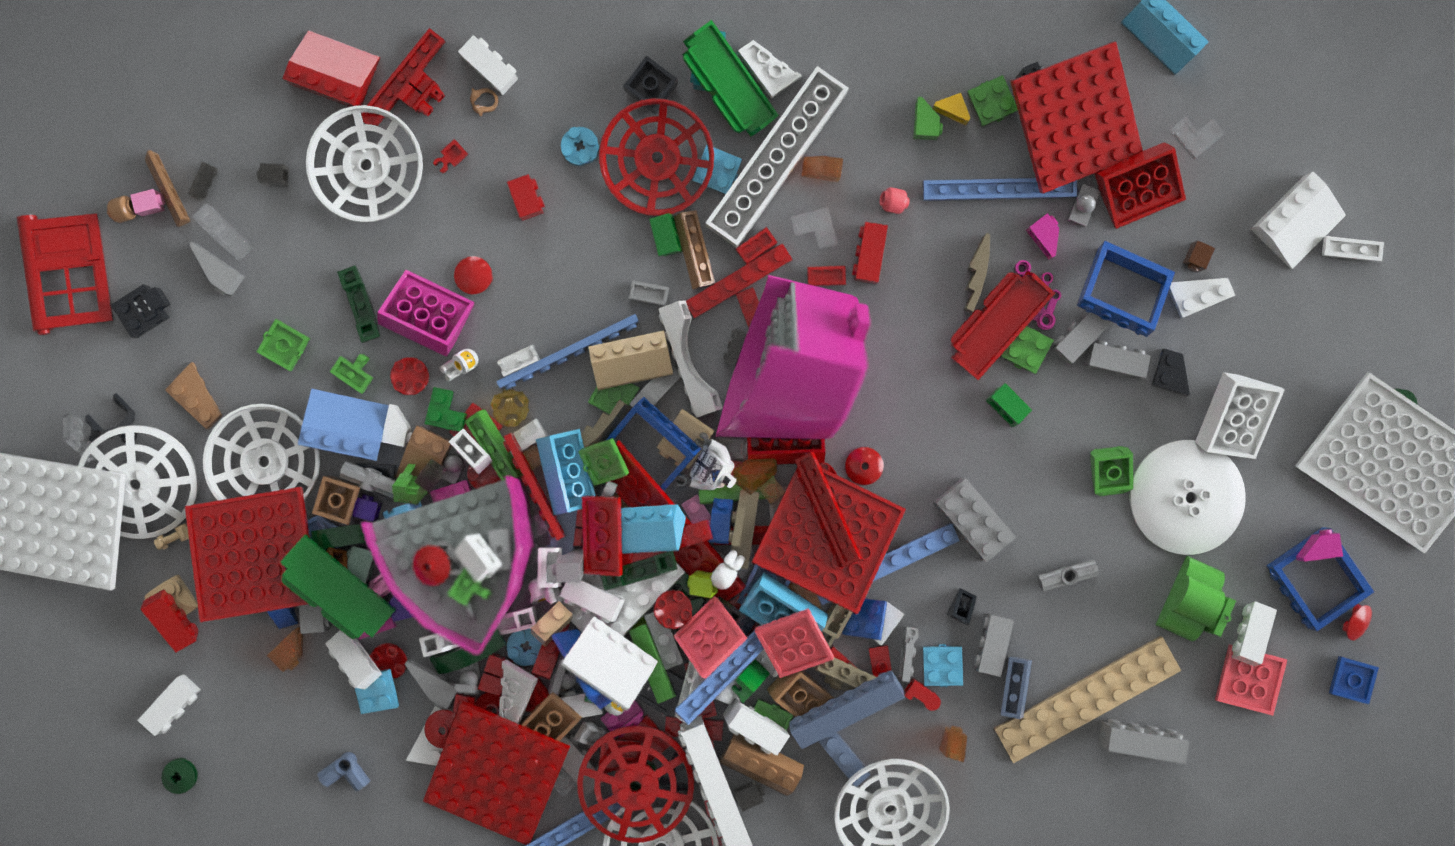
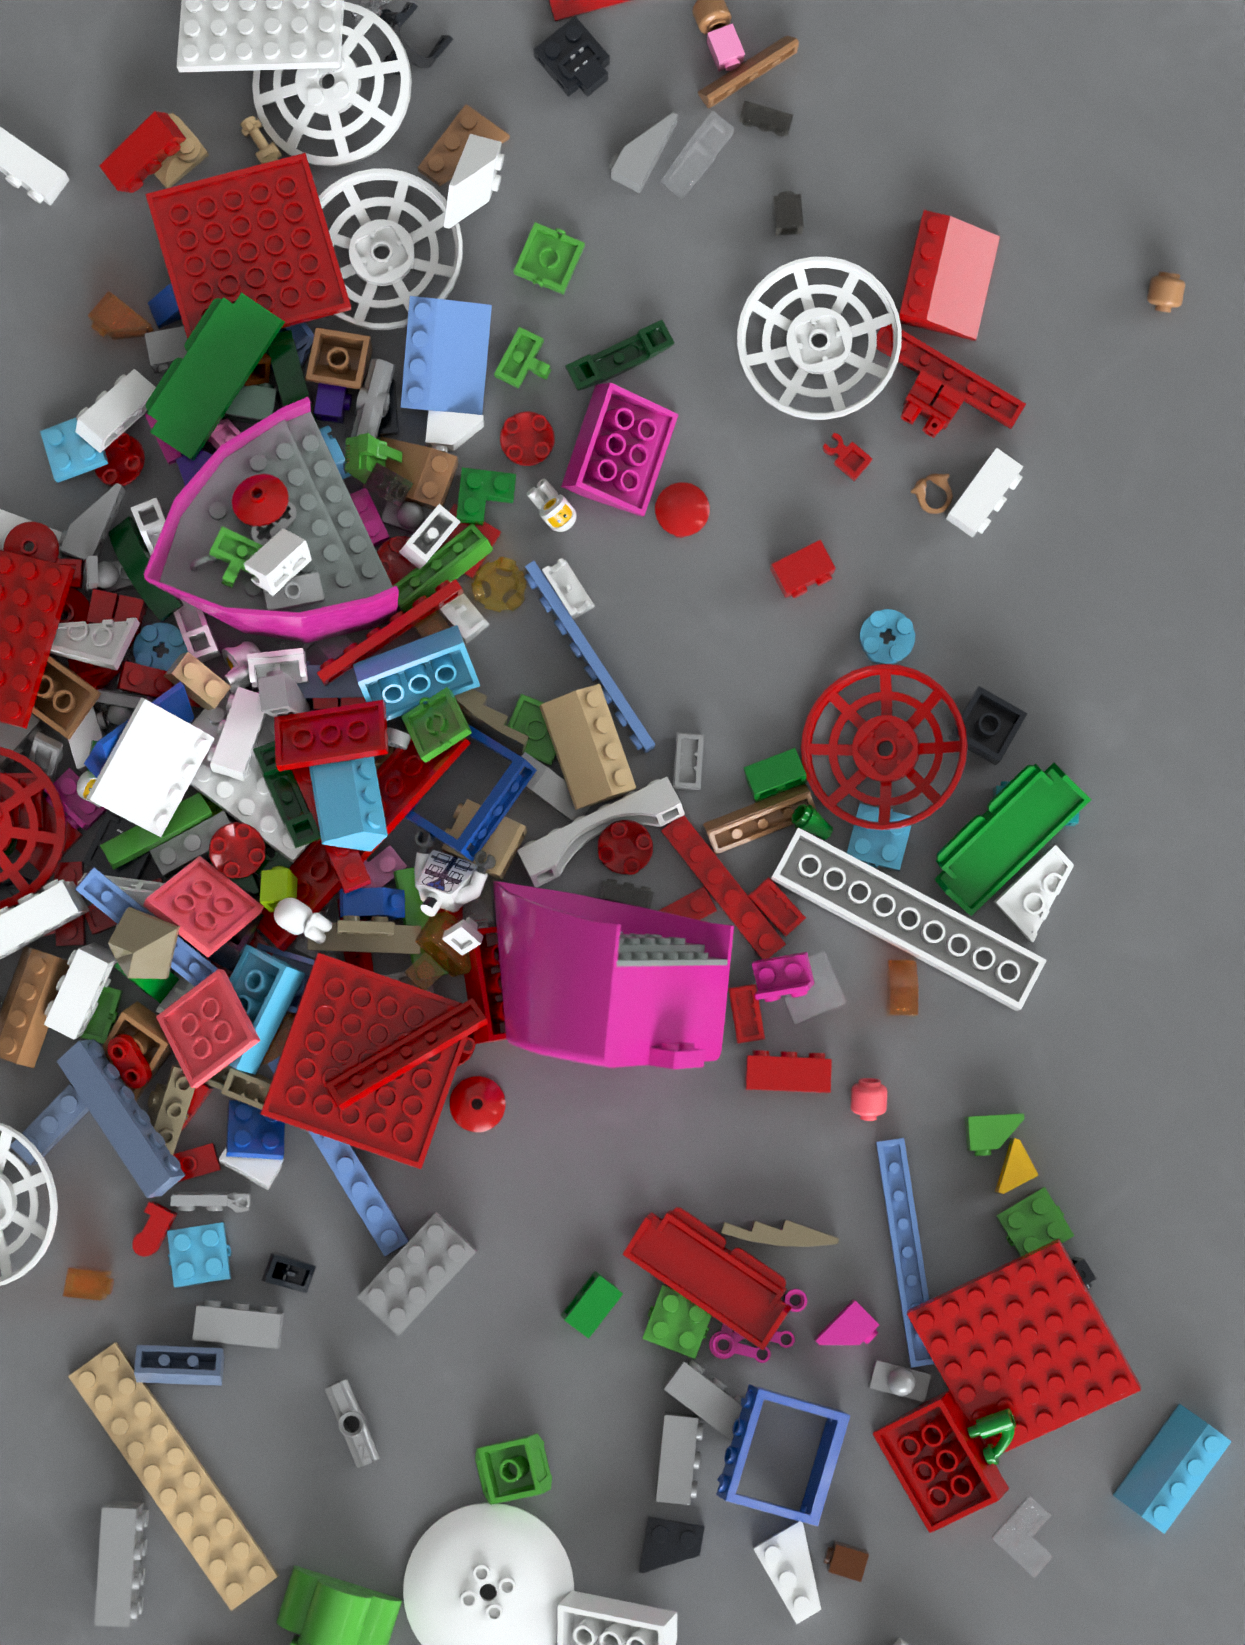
camera: 80 degrees right, 5 degrees down
(218, 389) = (473, 178): none -> white slope
(701, 214) = (811, 821): none -> green cone
(702, 343) = (625, 847): none -> red dish
(733, 681) = (144, 945): none -> dark tan slope
(752, 460) = (463, 936): none -> white tile
(805, 247) = (783, 976): none -> dark pink bracket
(808, 699) = (130, 1061): none -> red plate
(1124, 145) = (991, 1425): none -> green plant

